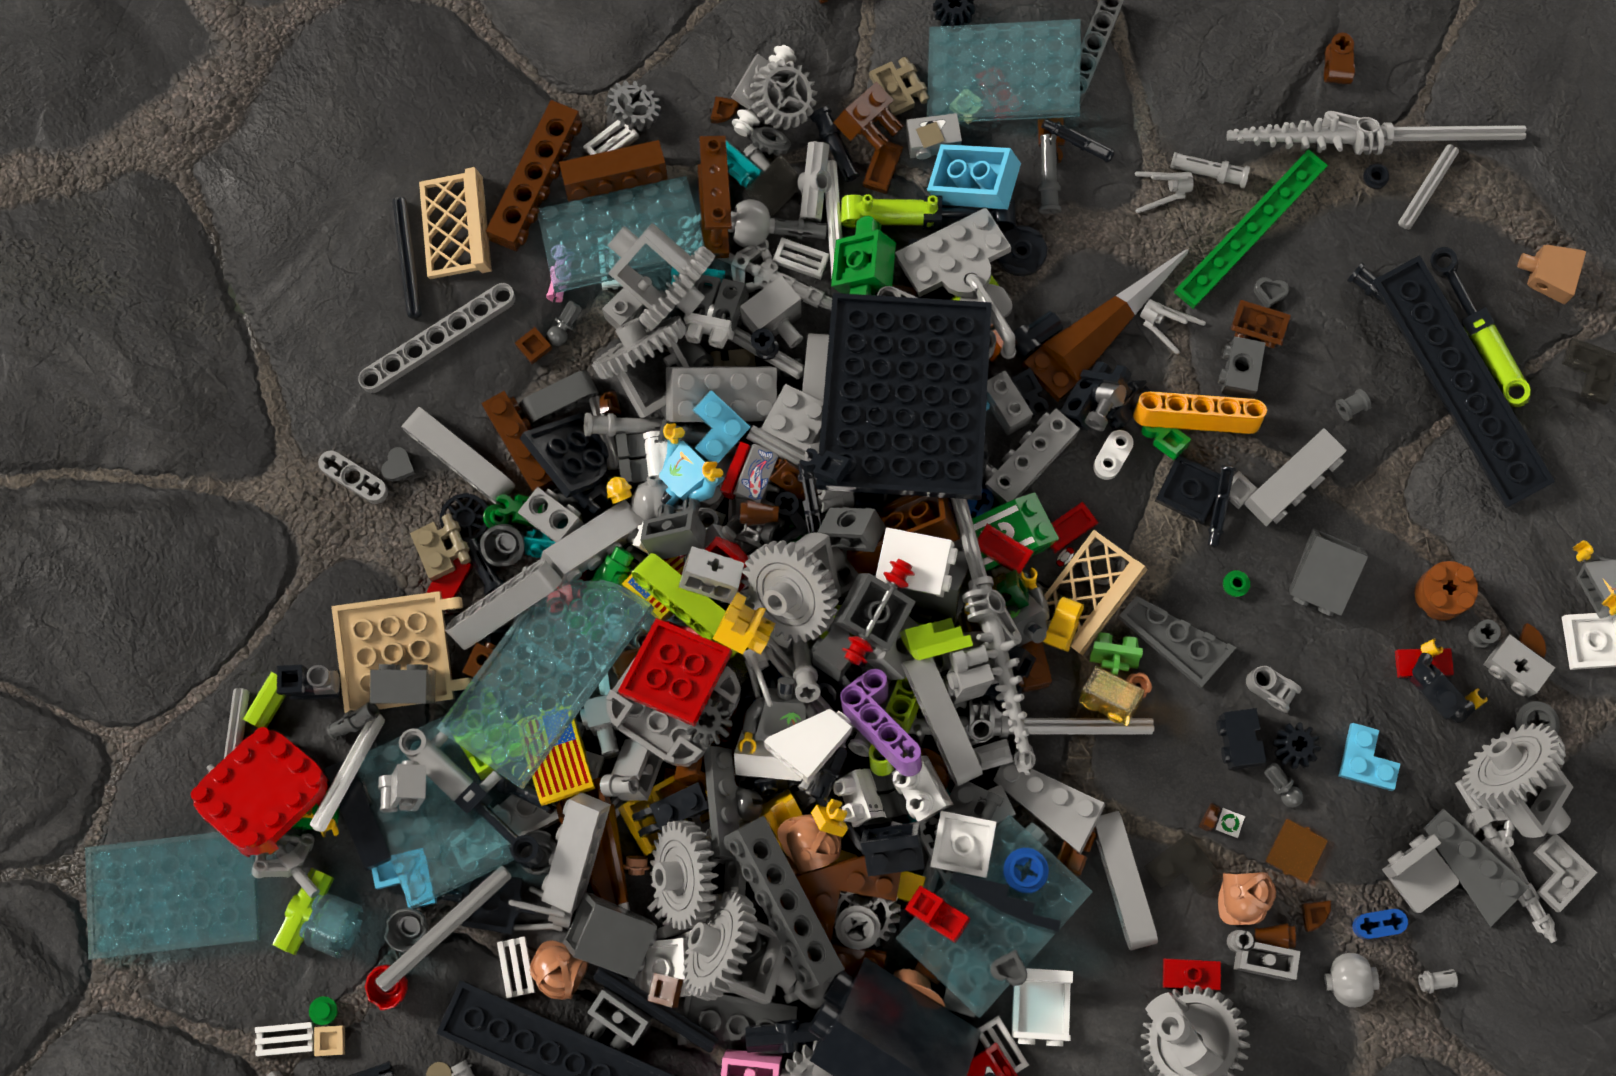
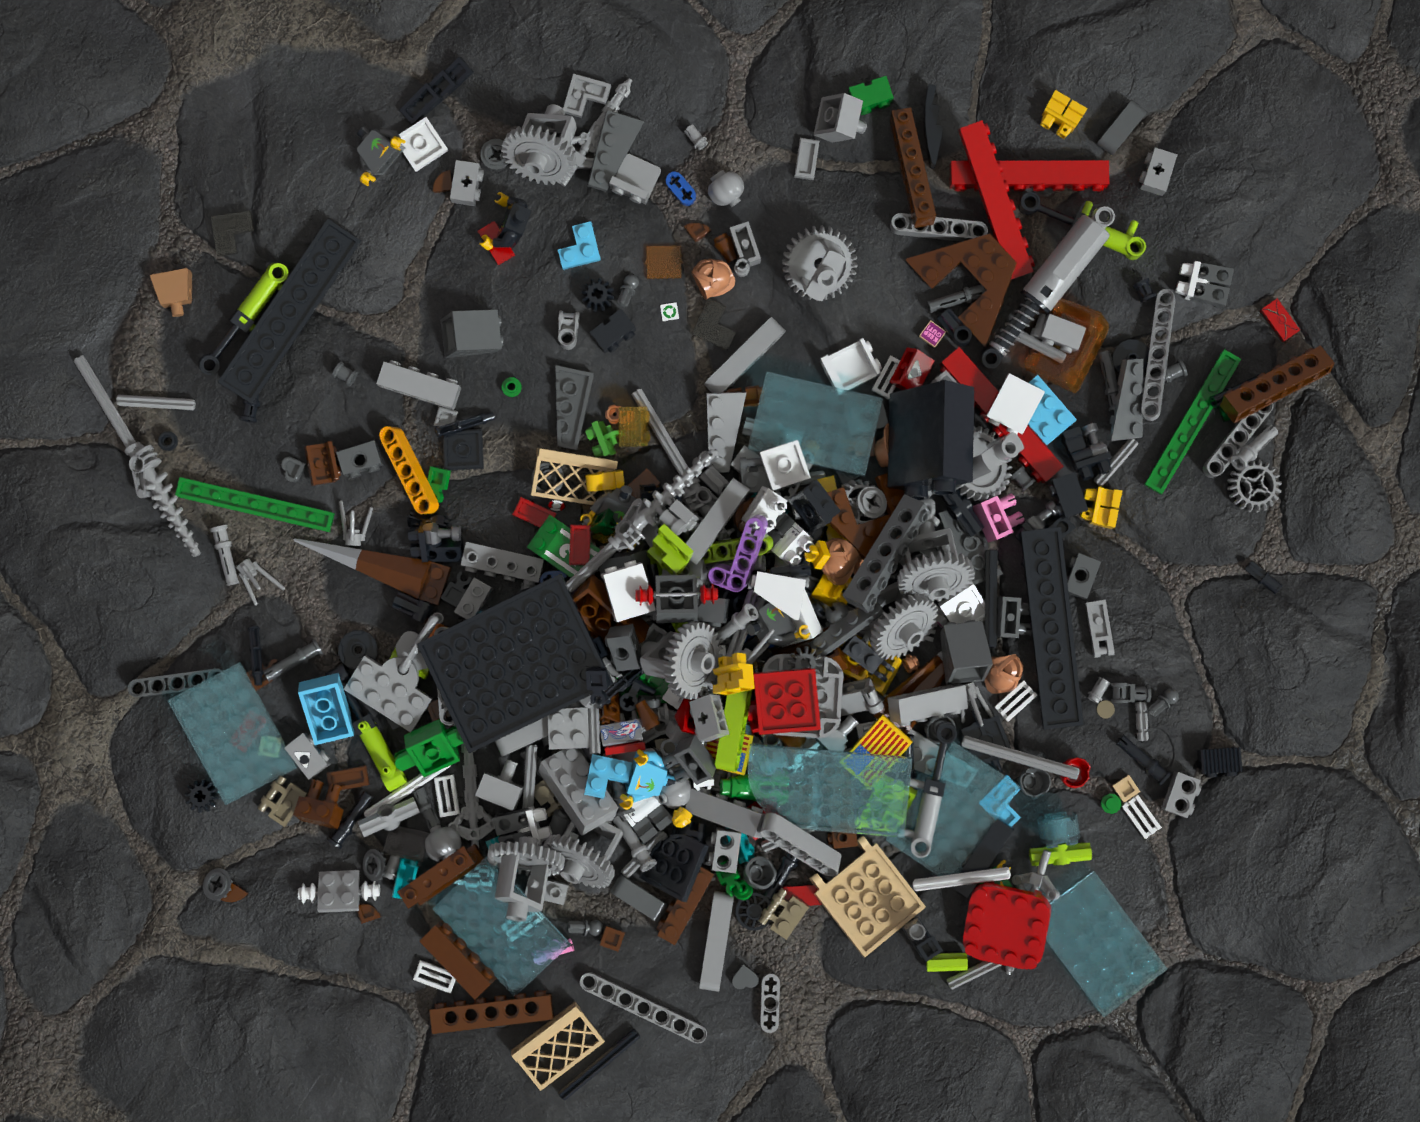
camera: 120 degrees left, 10 degrees up
(353, 721) = (927, 897): dark grey pin -> none
(403, 787) = (952, 834): light grey hinge -> none
(407, 686) = (889, 876): dark grey brick -> none
(609, 403) = (623, 862): reddish brown tile -> none
(632, 105) = (406, 984): dark grey gear -> none
(665, 990) = (977, 597): plate -> none
(764, 344) = (526, 785): black bush -> none
(800, 101) = (322, 872): light grey gear -> none
(930, 134) = (310, 756): dark tan sticker -> none
(937, 914) = (836, 457): red slope -> none
(995, 897) = (806, 427): black slope -> none
(1009, 968) = (843, 396): dark grey tile -> none
(1037, 865) = (784, 411): blue gear -> none
(1114, 453) = (467, 512): white plate -> none
(1190, 973) = (778, 286): red plate -> none
(1210, 817) = (675, 325): reddish brown tile -> none
(1339, 60) = (96, 508): reddish brown piece -> none
(1457, 580) = (430, 252): dark orange brick -> none
(1490, 628) = (450, 214): dark grey bush -> none

